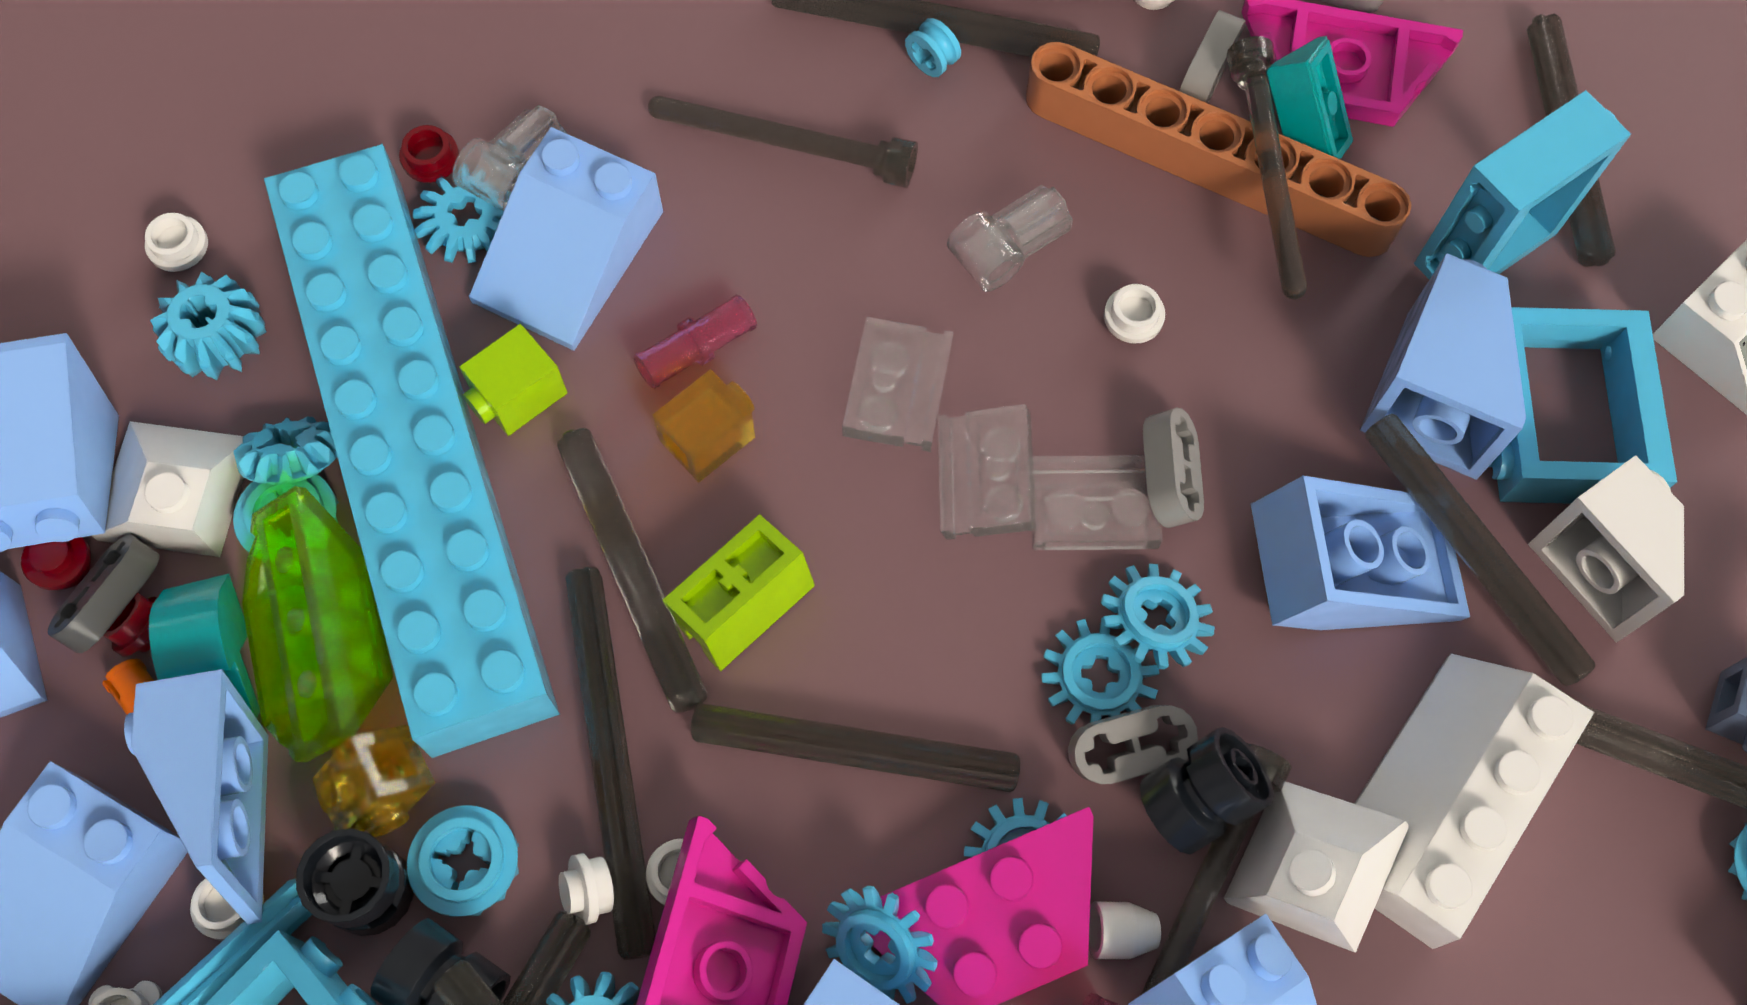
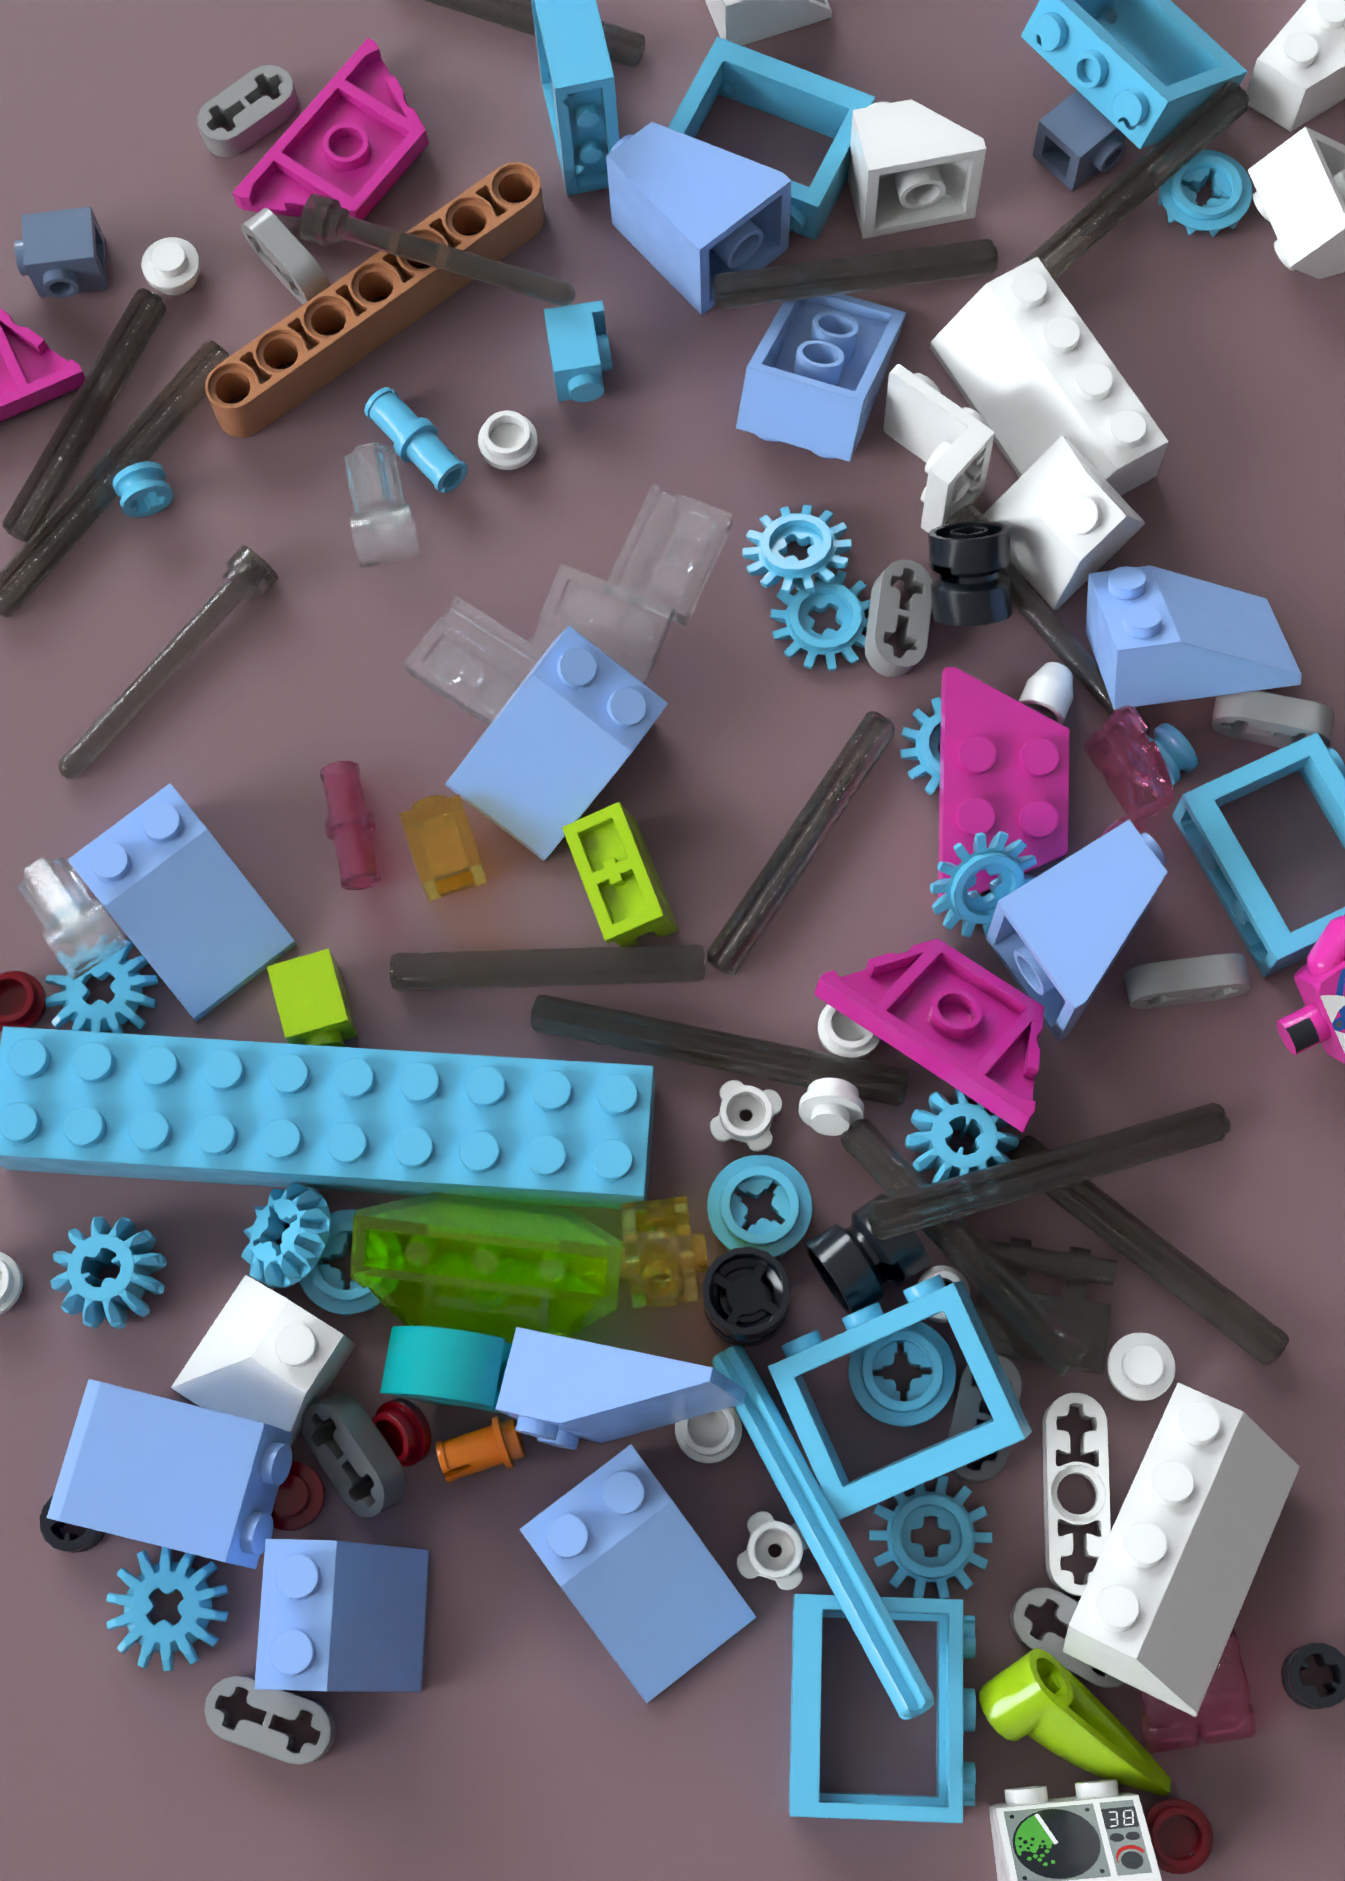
camera: 60 degrees left, 5 degrees up
(538, 796) = (742, 1097): none -> white plate
(844, 474) = (556, 742): none -> light blue slope
(1092, 237) = (415, 440): none -> medium azure pin
(1173, 468) = (672, 474): light grey beam -> none
(1254, 332) = (578, 350): none -> medium azure brick
(1311, 98) = (380, 192): teal slope -> none
(1319, 729) = (945, 436): none -> white bracket

